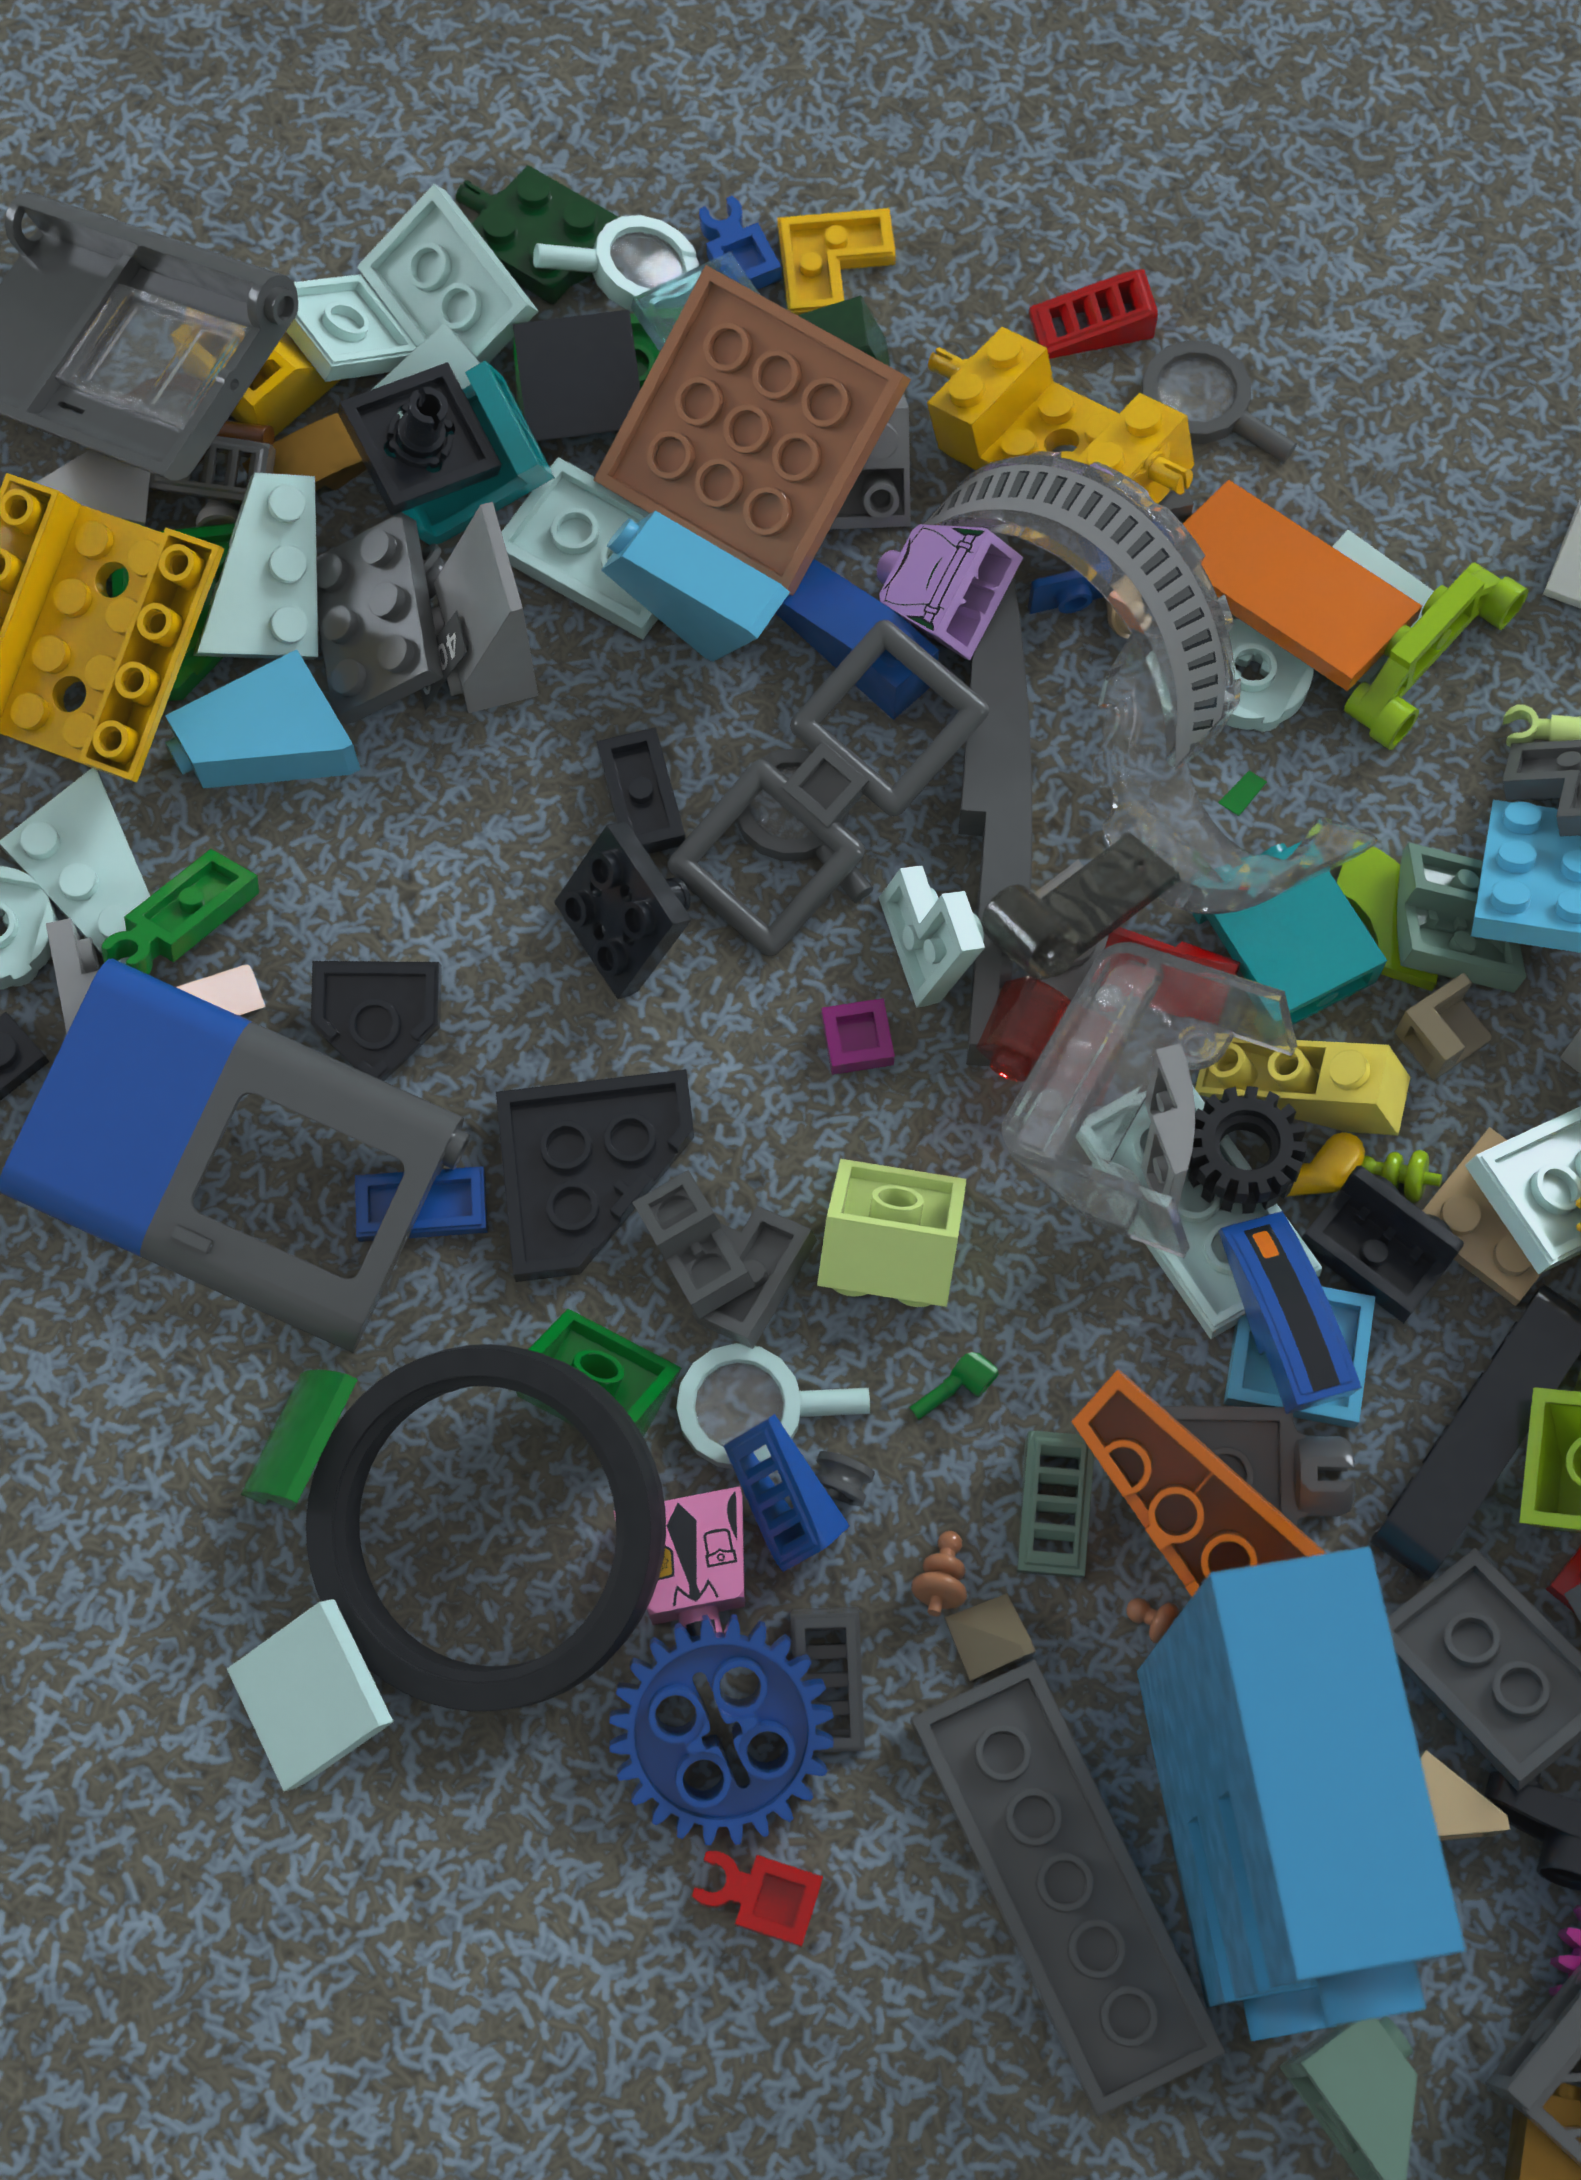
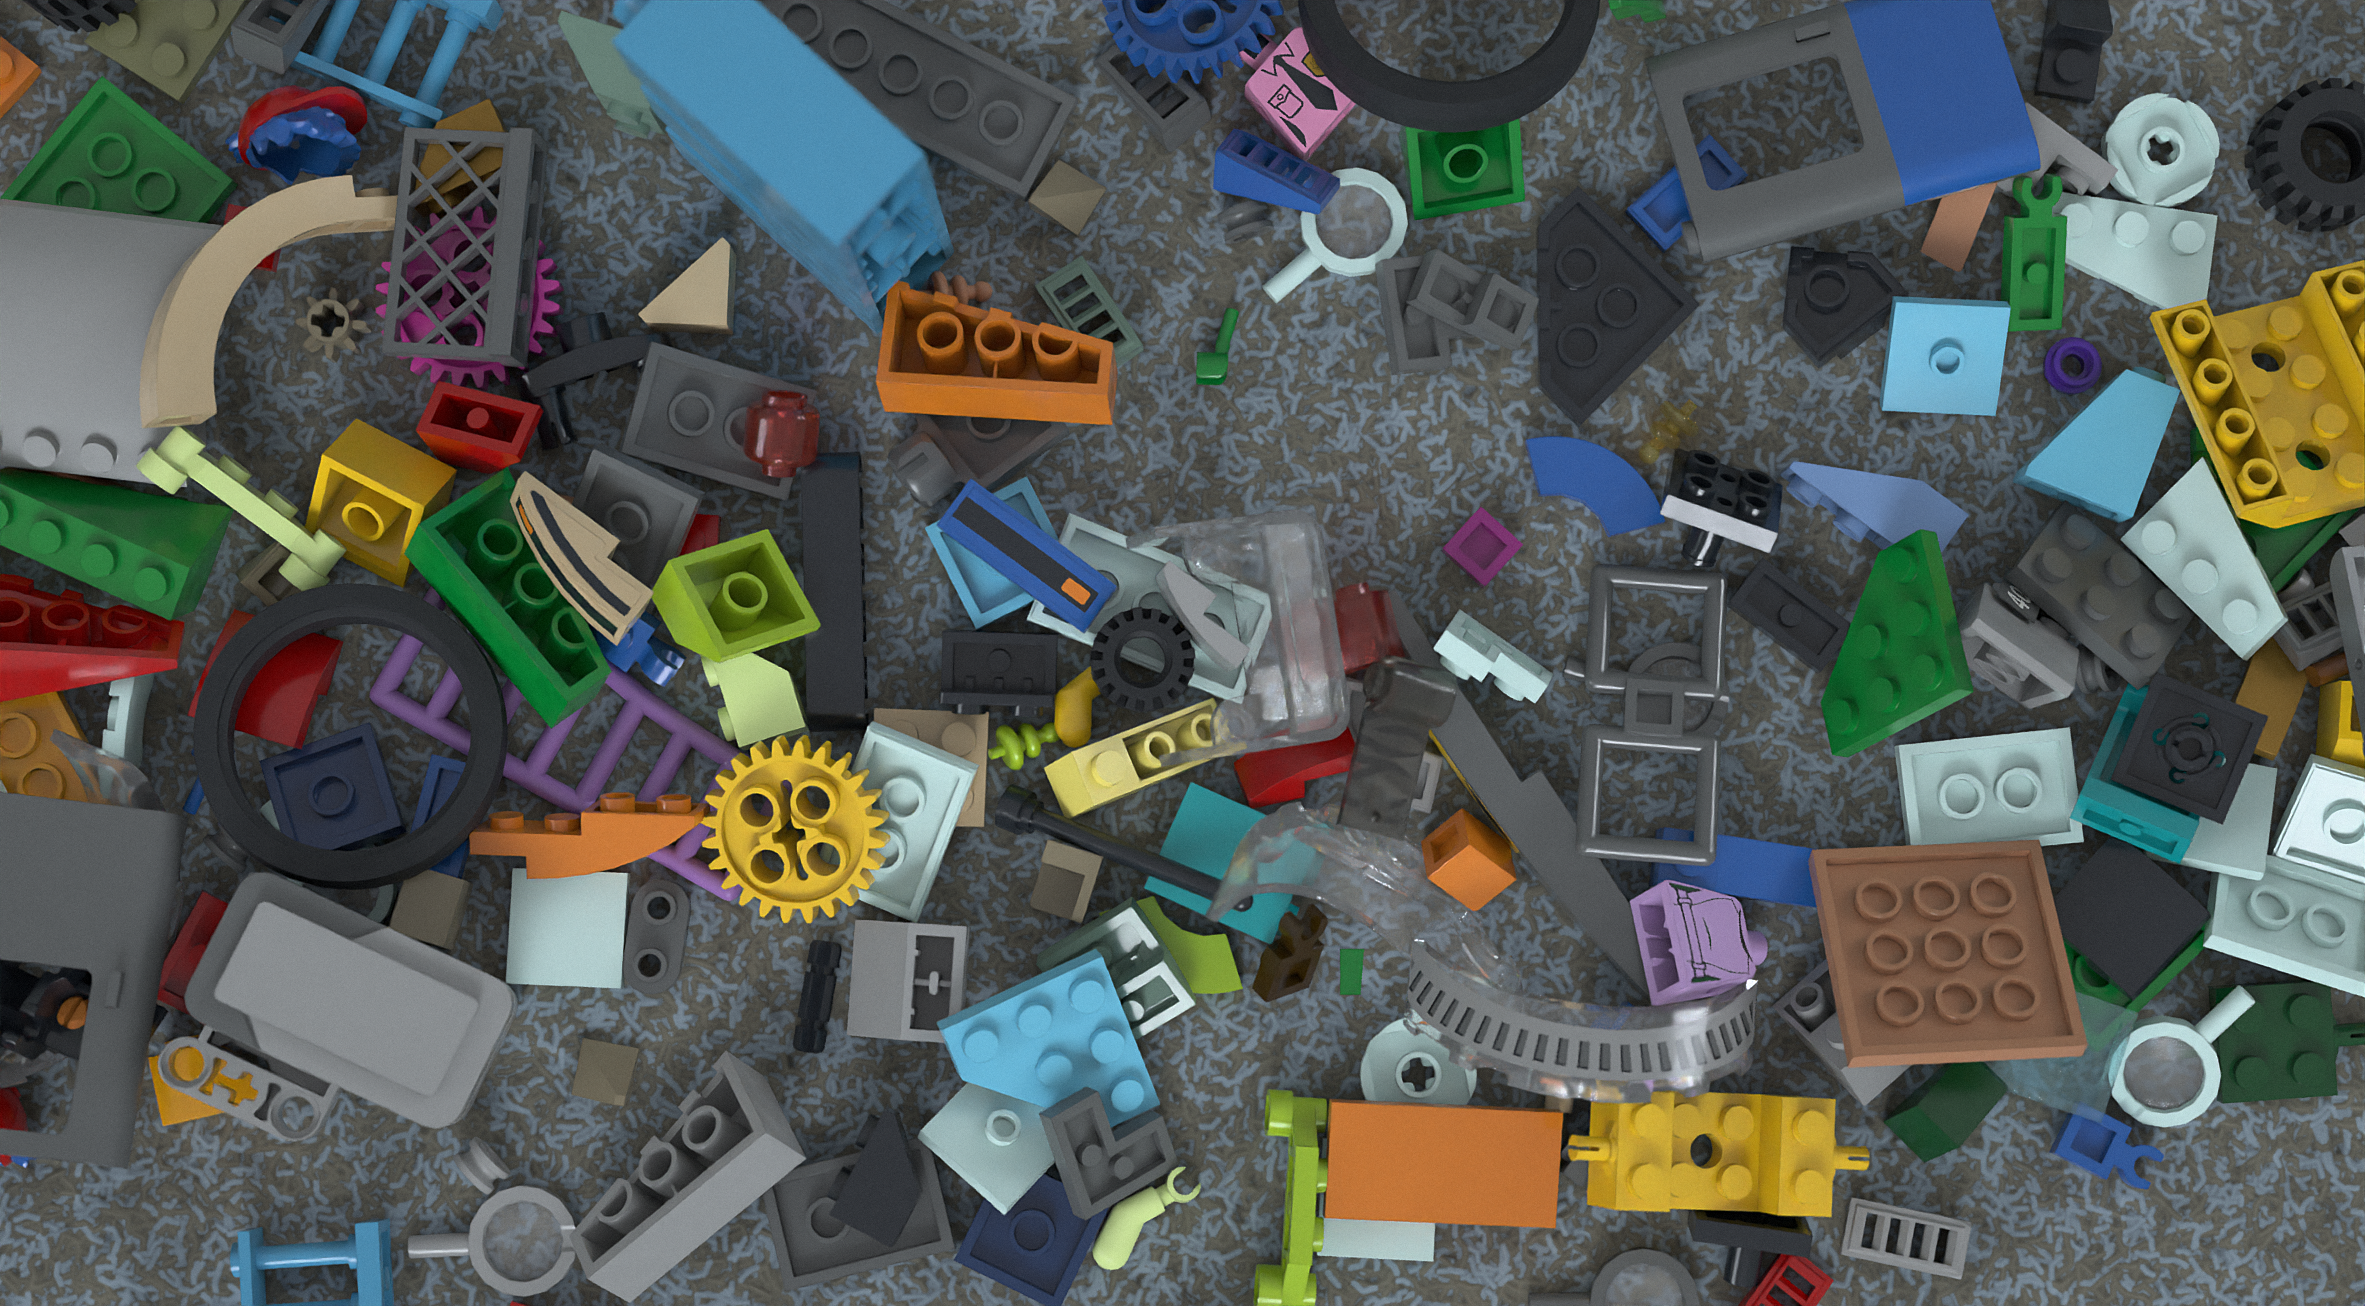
camera: 140 degrees right, 15 degrees up
(221, 801) = (2084, 353): none -> dark purple plate
(328, 893) = (1944, 355): none -> medium azure plate
(483, 810) = (1874, 504): none -> medium blue slope
(583, 678) = (1900, 650): none -> green plate
(618, 1014) = (1666, 433): none -> clear yellow hair
(692, 585) = (1884, 792): medium azure slope -> none
(709, 1024) = (1596, 479): none -> blue tile
(822, 244) = (2044, 1204): yellow tile -> none
(891, 1233) = (1345, 420): yellowish green slope -> none
(925, 265) = (1955, 1248): none -> light grey slope
(941, 1583) = (1130, 215): nougat hair -> none
(1077, 797) = (1468, 860): none -> orange panel
(1080, 369) = (1748, 1237): none -> black tile
(1291, 820) = (1292, 959): none -> dark brown plate
(1442, 1107) = (1022, 812): none -> black piece
(1444, 1599) = (781, 432): none -> clear red head

